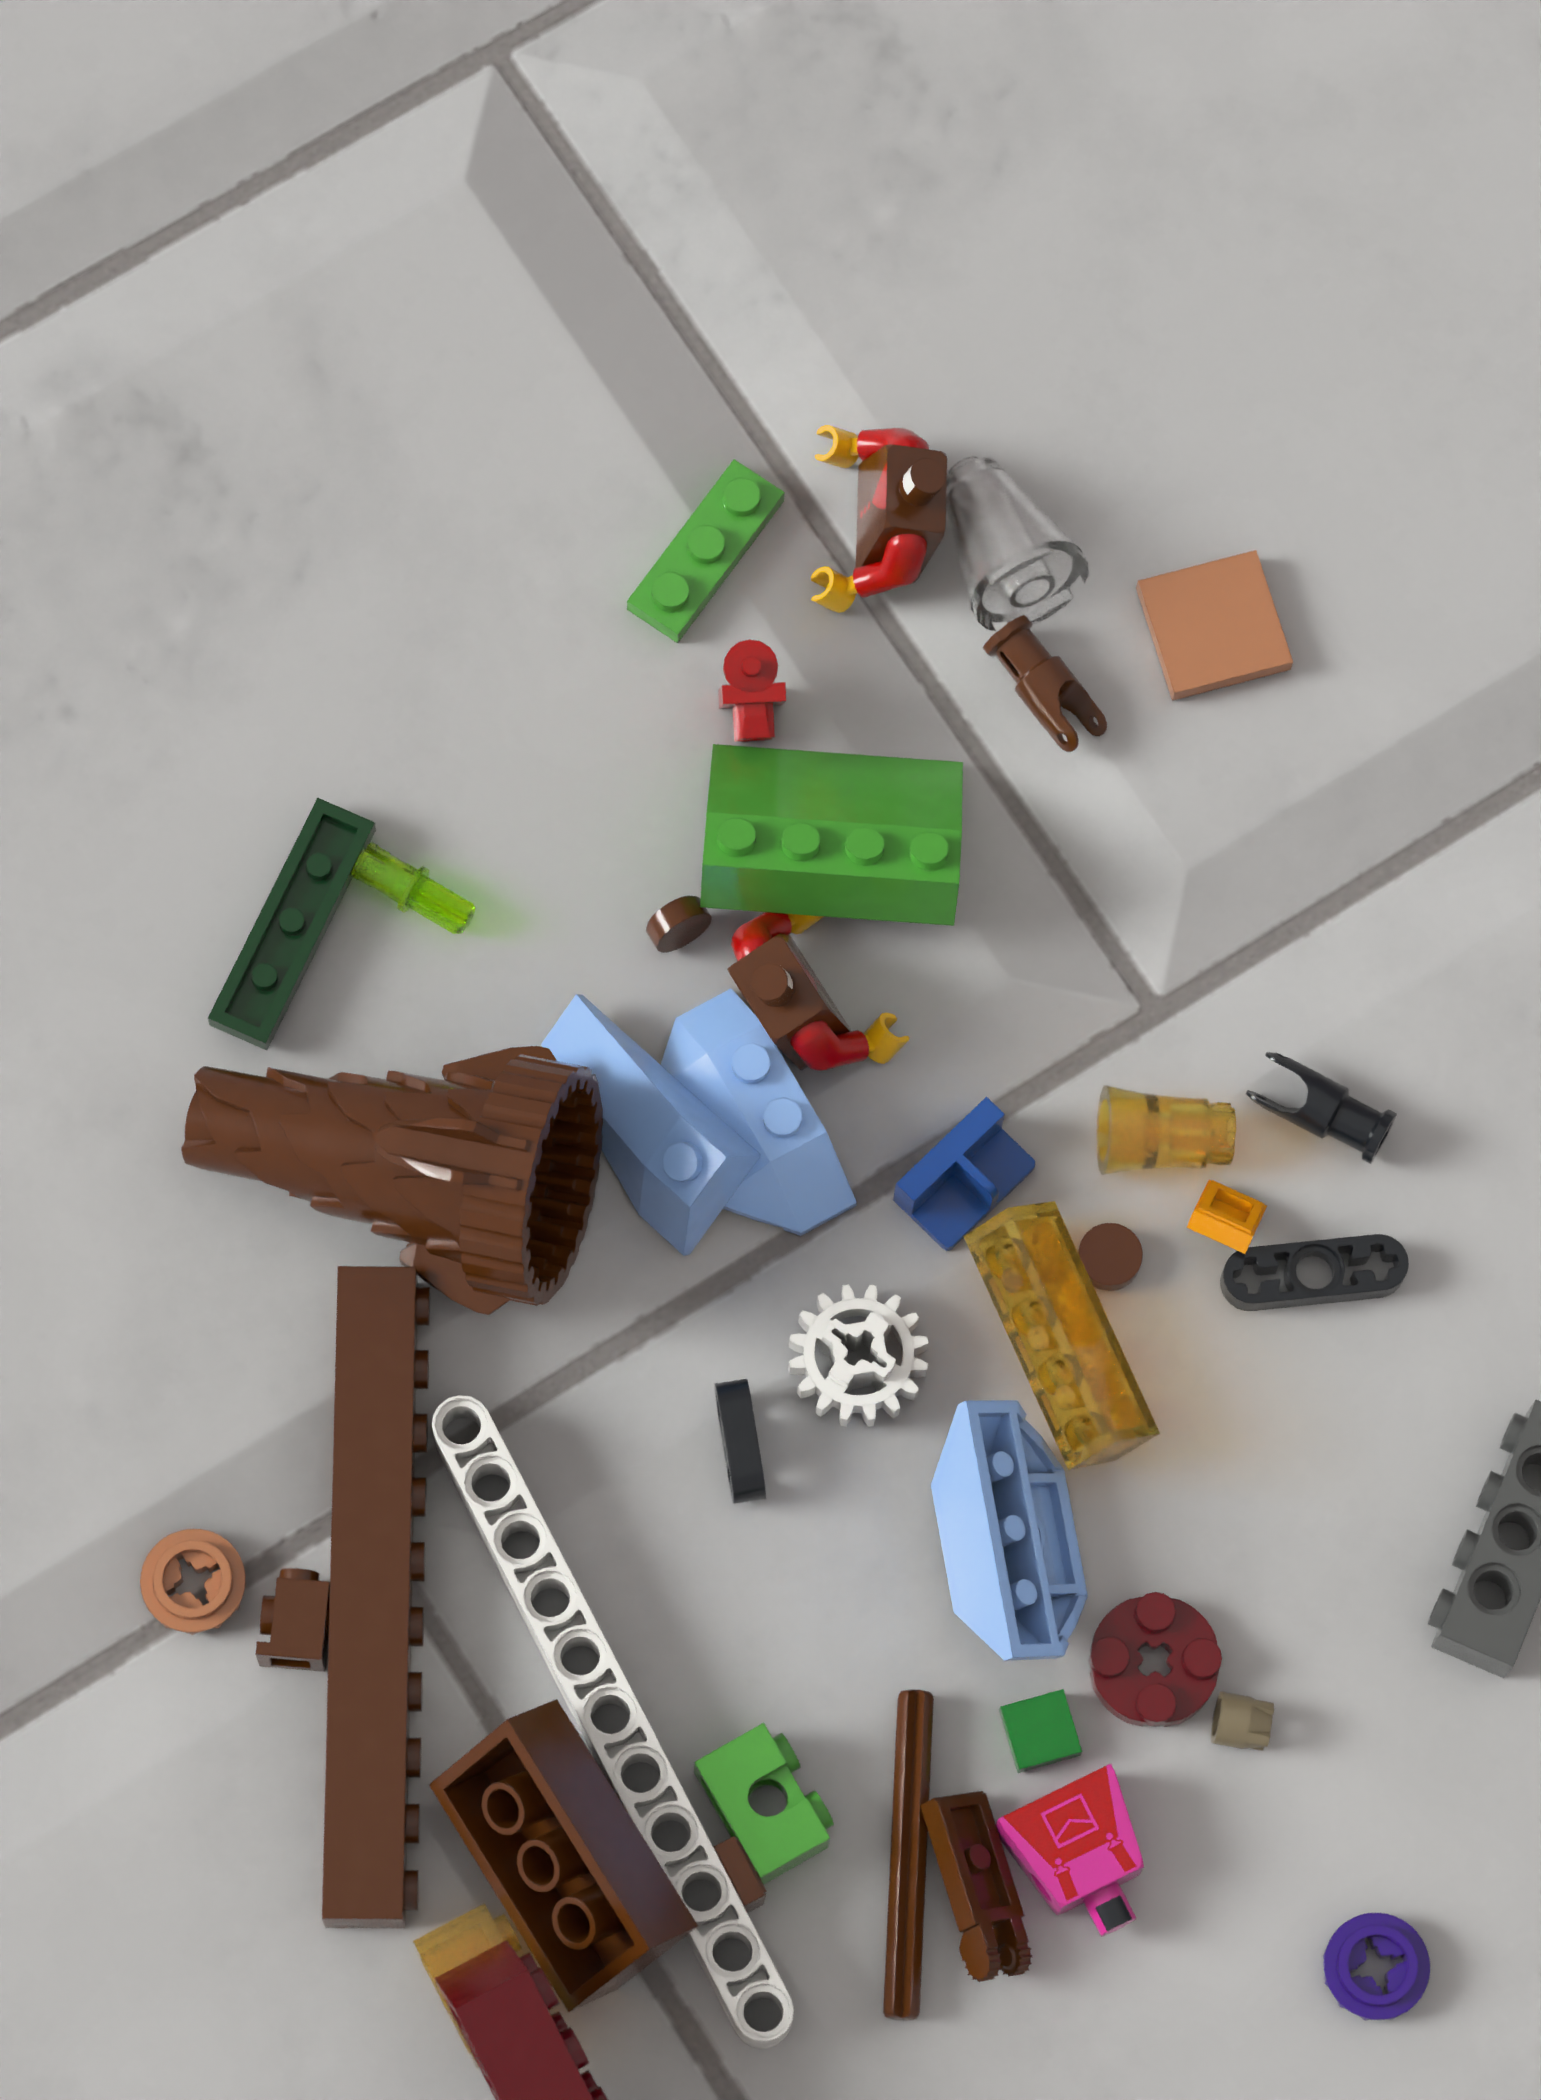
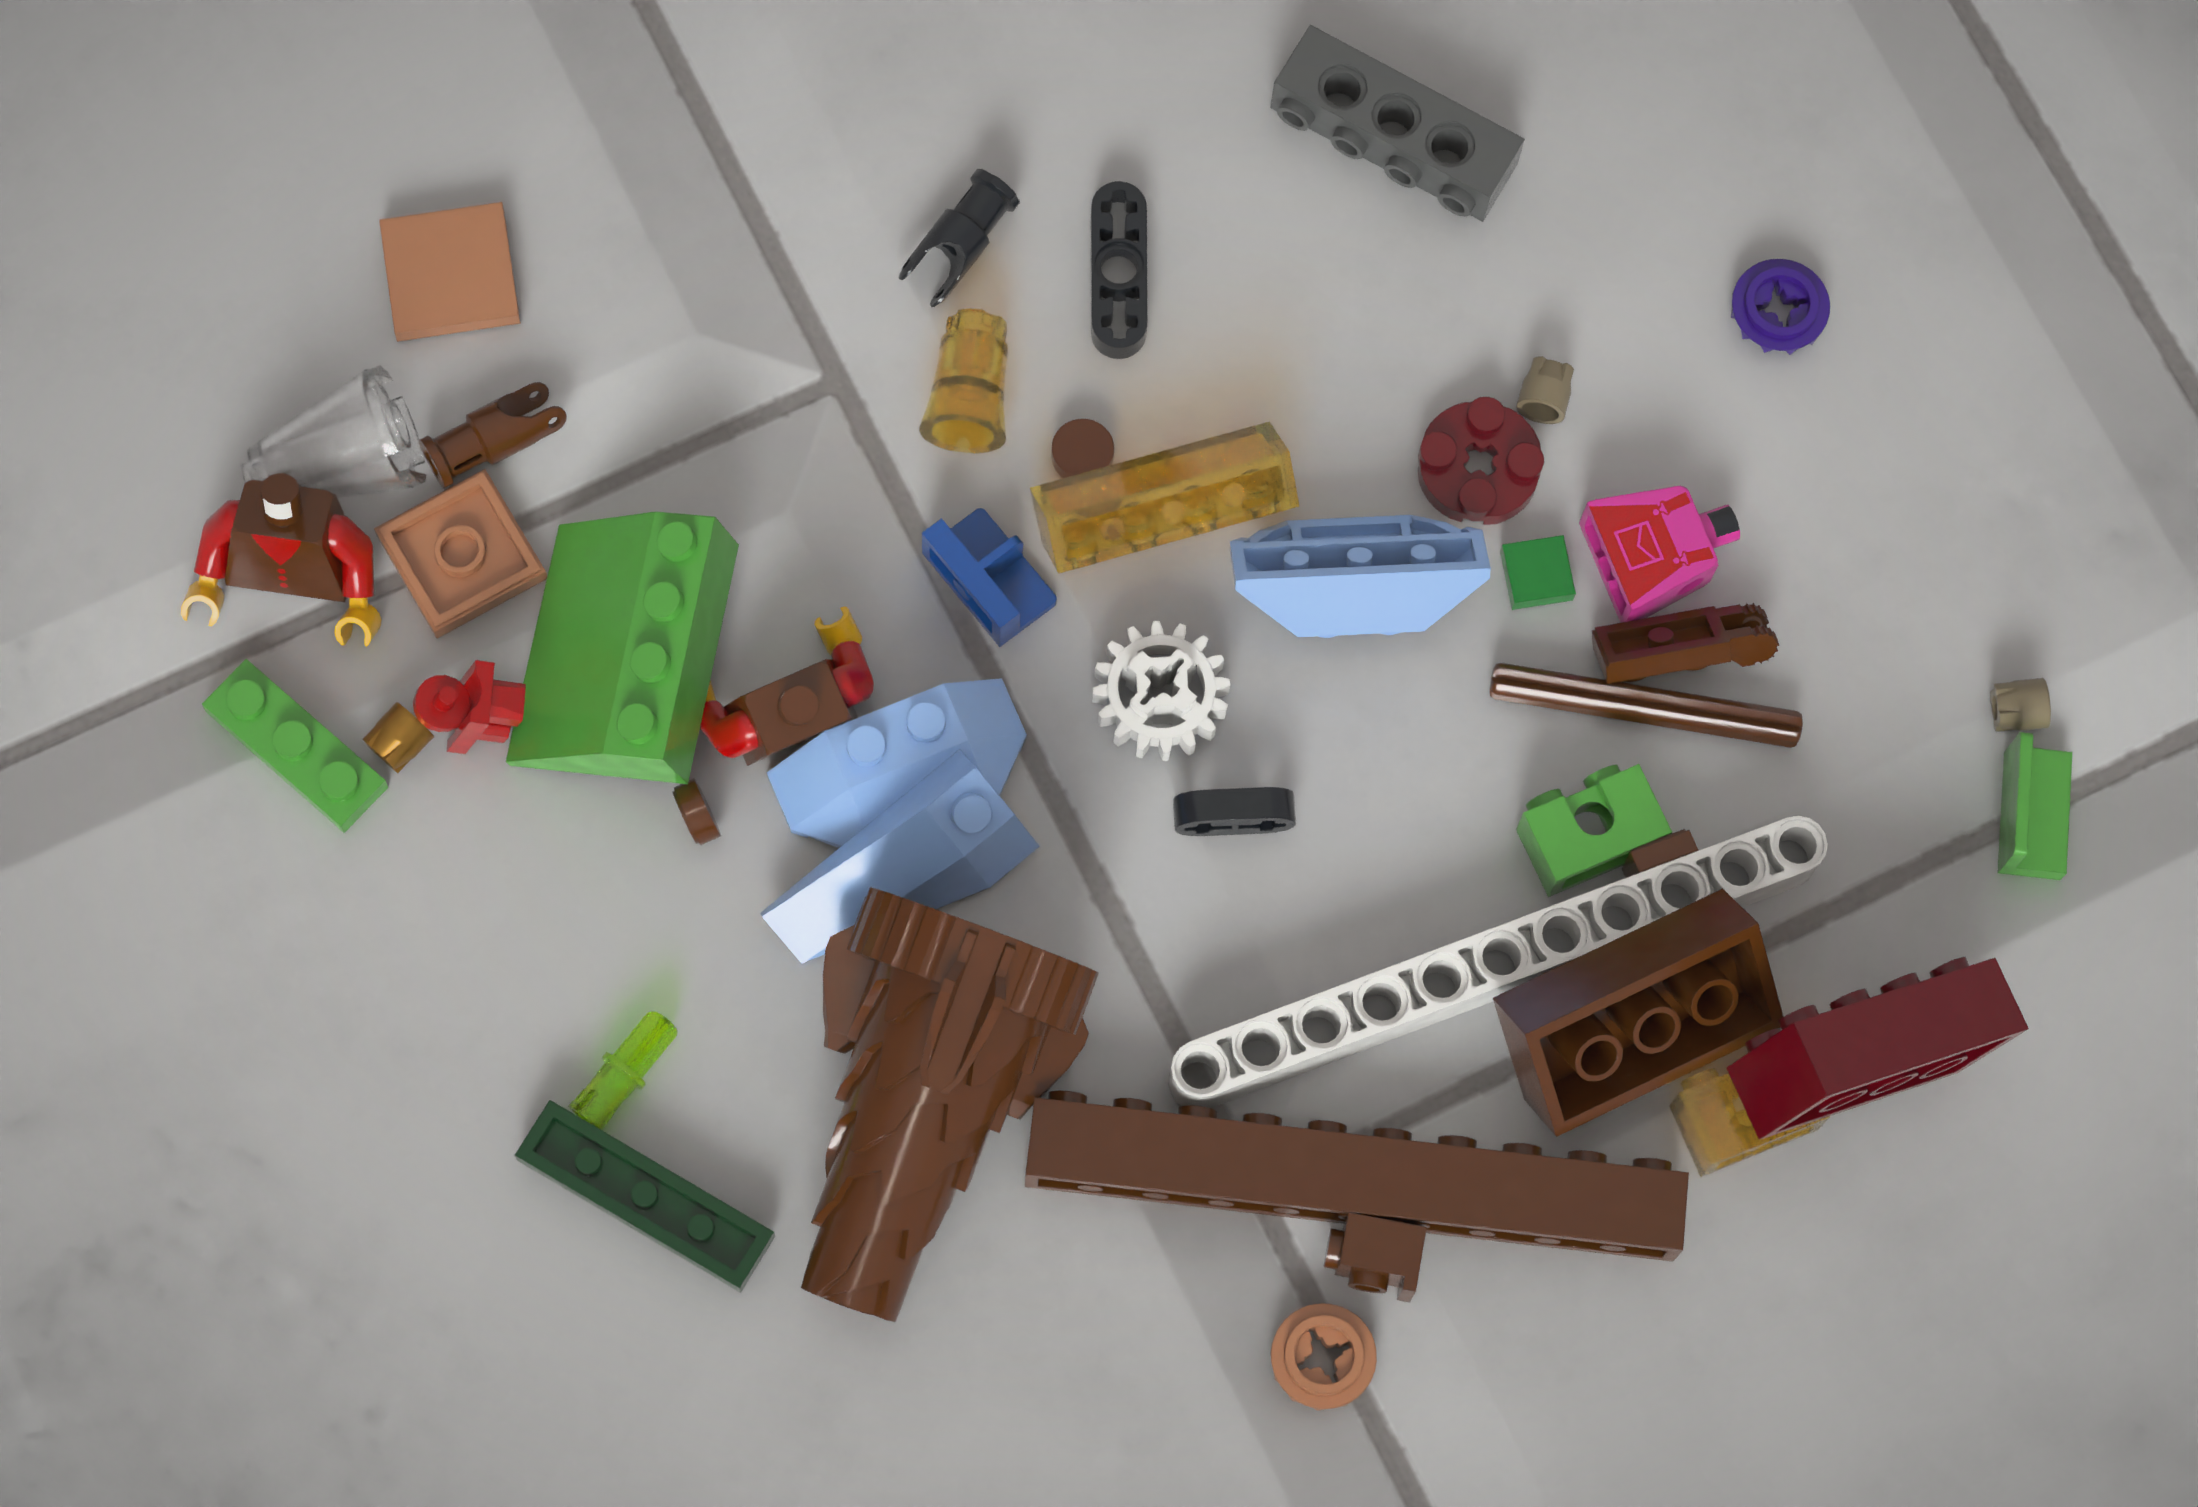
camera: 85 degrees left, 0 degrees up
(717, 634) = (398, 737): none -> pearl gold hose
(920, 675) = (460, 553): none -> nougat tile
(1227, 1216) = (1058, 337): light orange tile -> none

